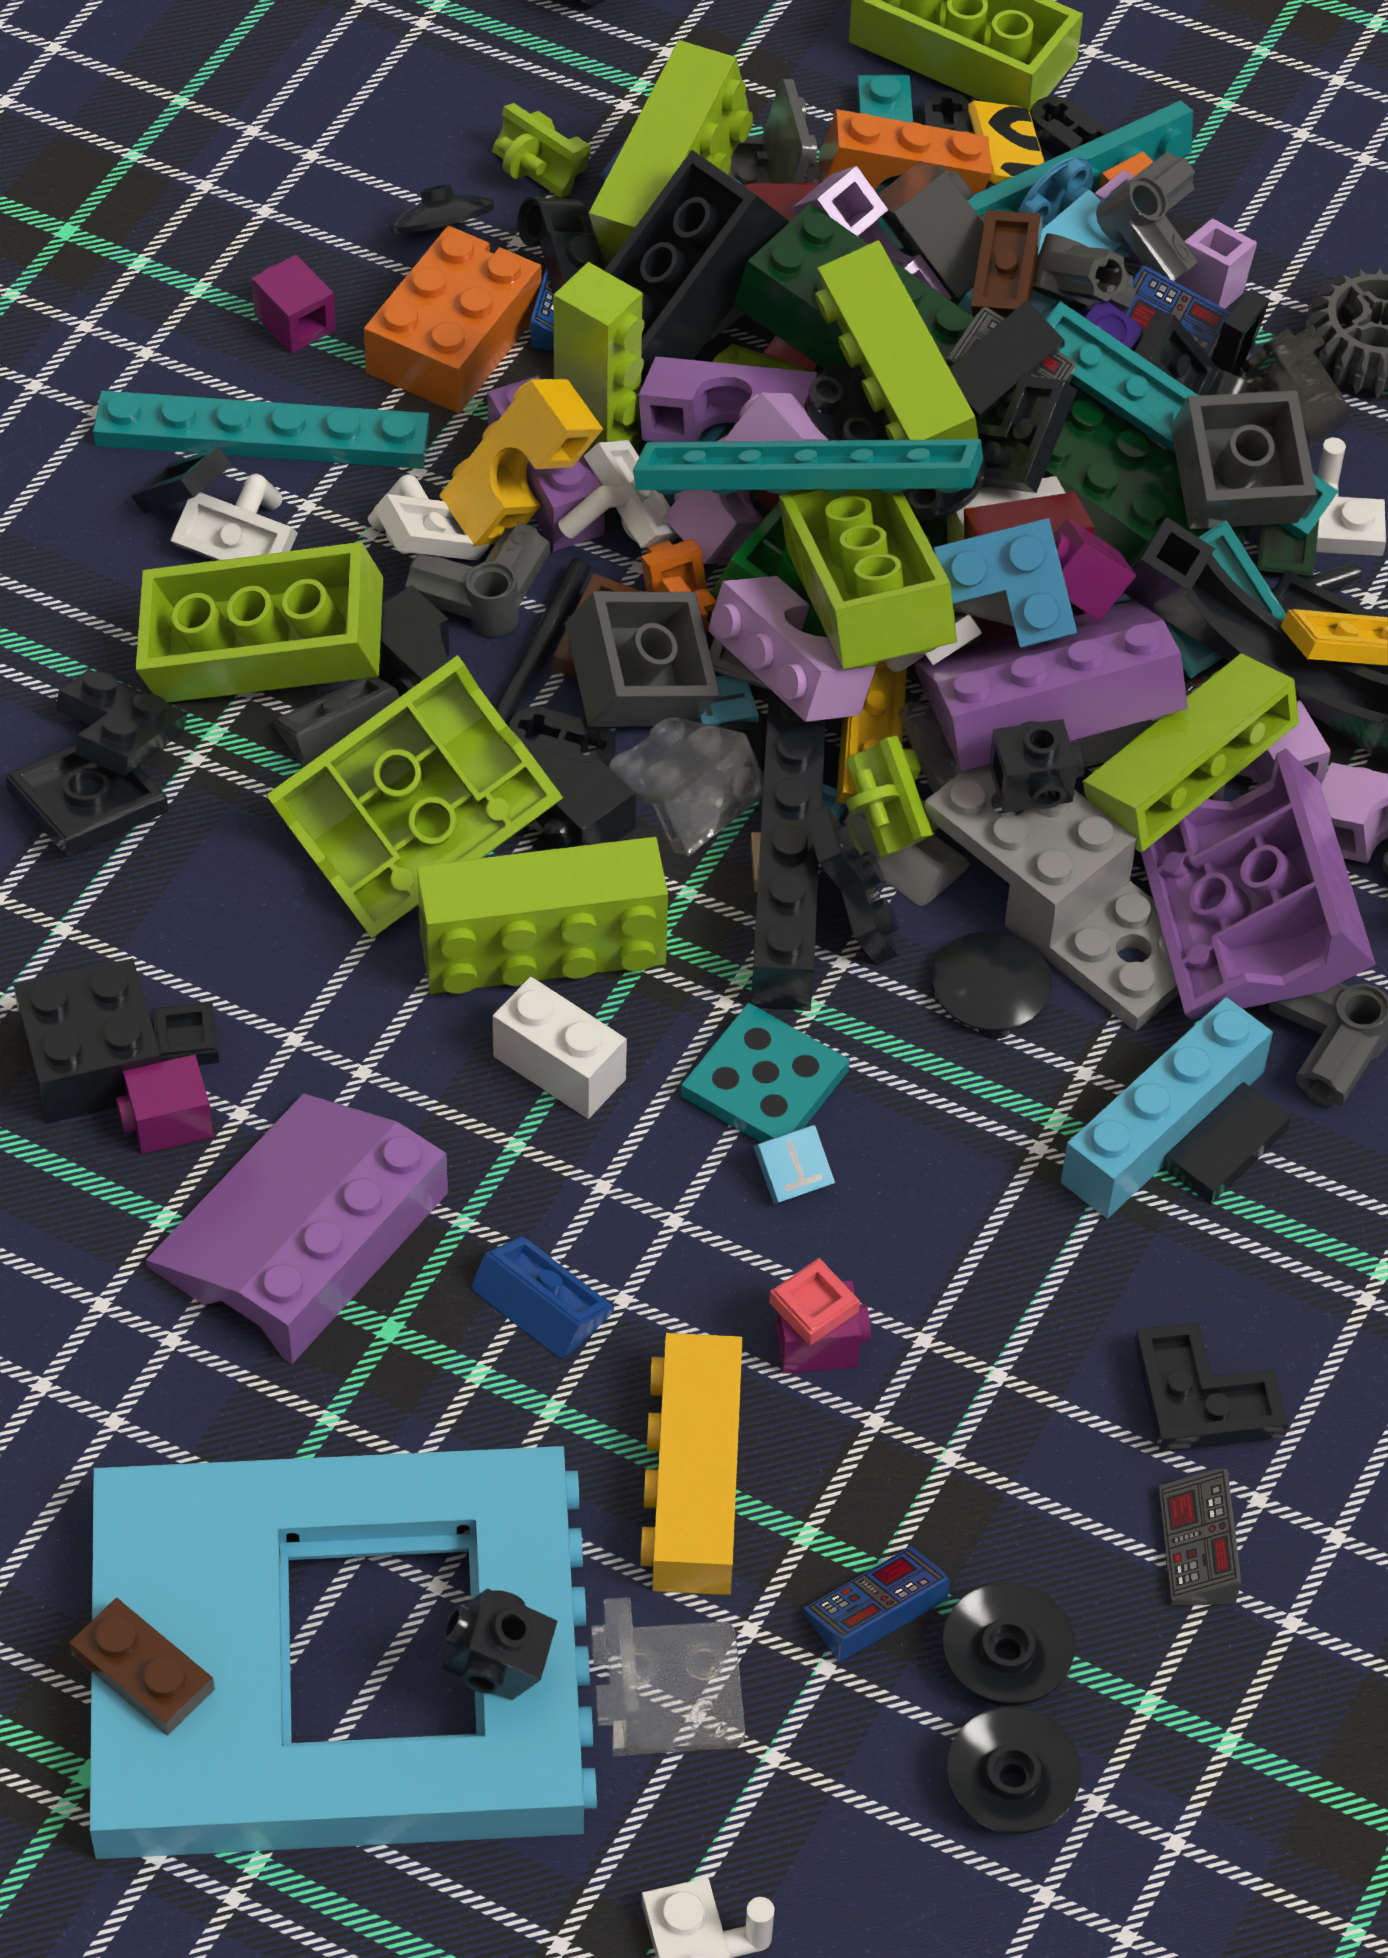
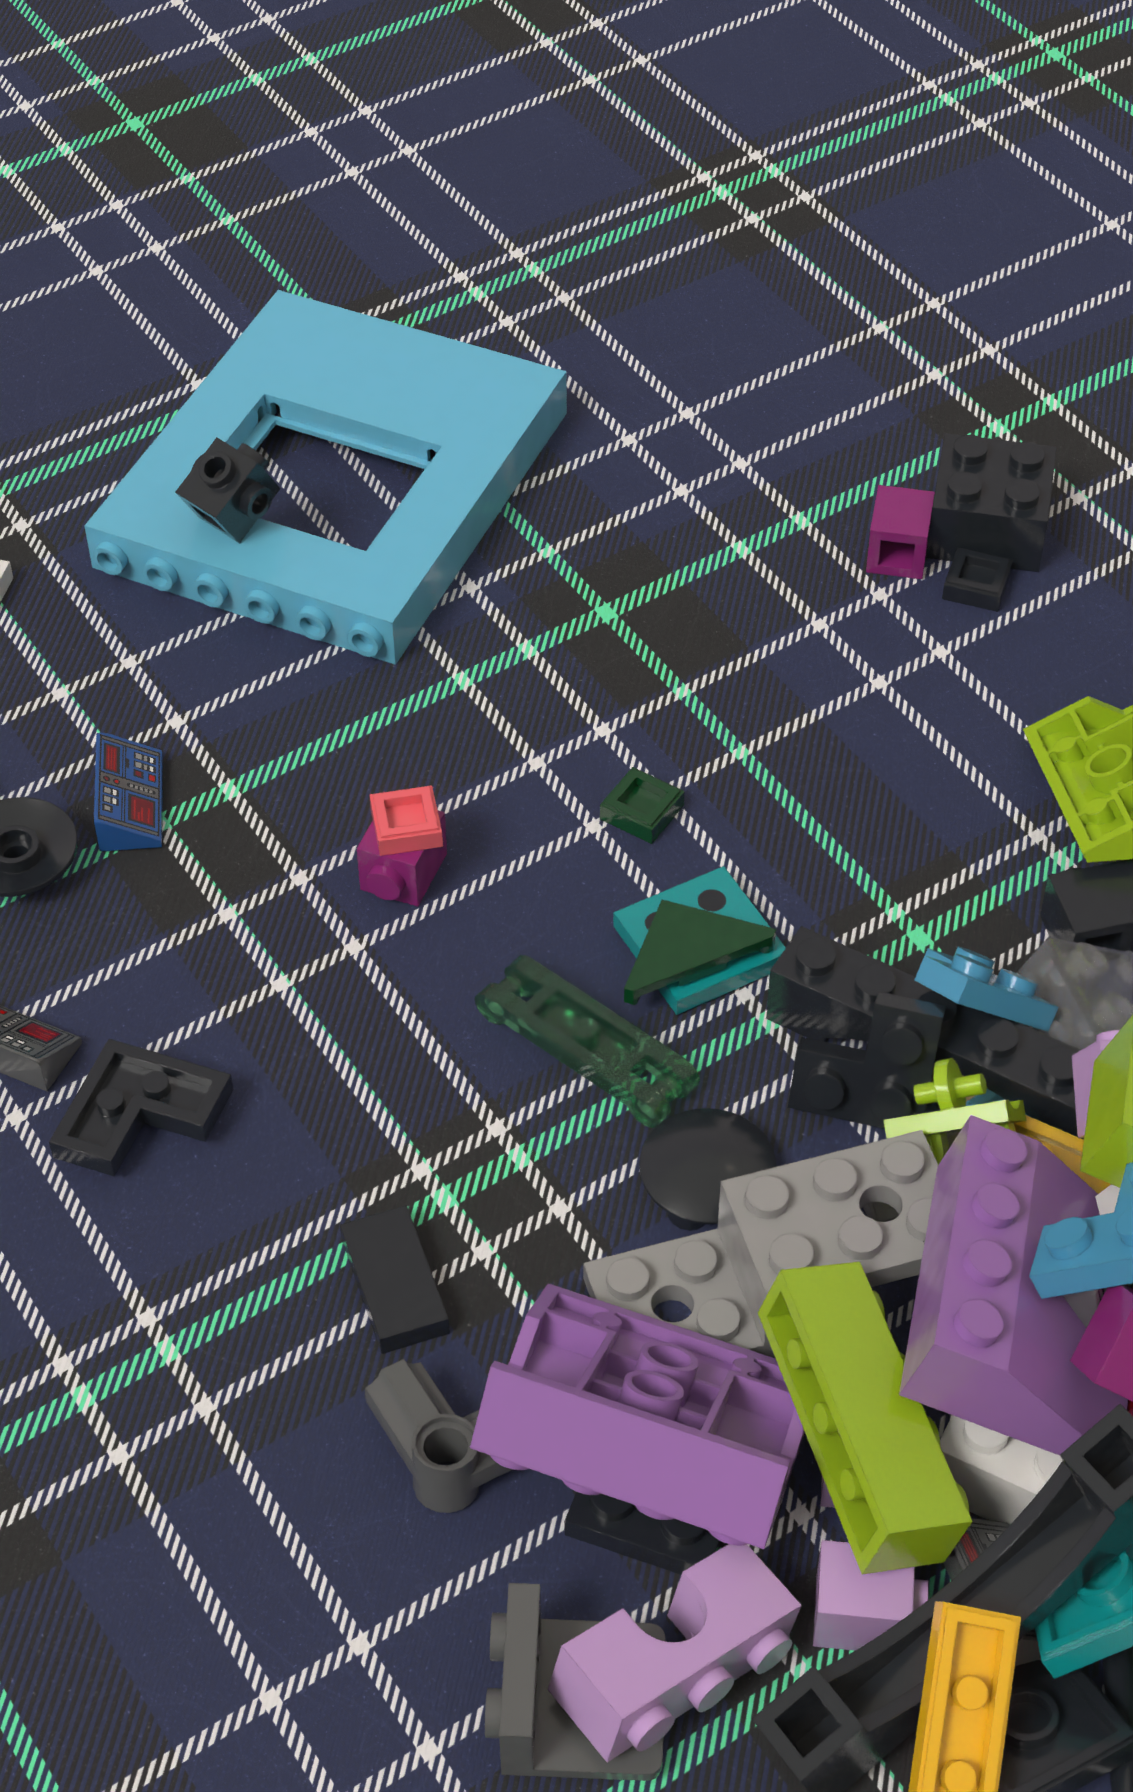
camera: 120 degrees right, 5 degrees down
(142, 1666) = (377, 338): reddish brown plate -> none
(305, 1219) = (730, 575): medium lavender piece -> none
(540, 1296) = (572, 705): blue slope -> none
(543, 915) = (951, 808): lime brick -> none
(559, 1047) = (809, 786): white brick -> none
(635, 1185) = (642, 805): none -> dark green tile
(667, 1684) = (163, 627): clear bracket -> none
(696, 1464) = (330, 720): yellow brick -> none
(737, 818) = (970, 982): none -> dark azure plate
(794, 1164) = (584, 909): medium azure tile -> none
(801, 1065) = (691, 945): none -> dark green tile
(924, 1111) = (588, 1039): none -> clear green plate
(1034, 765) = (882, 1188): black brick -> none
(1163, 1105) = (454, 1222): medium azure brick -> none

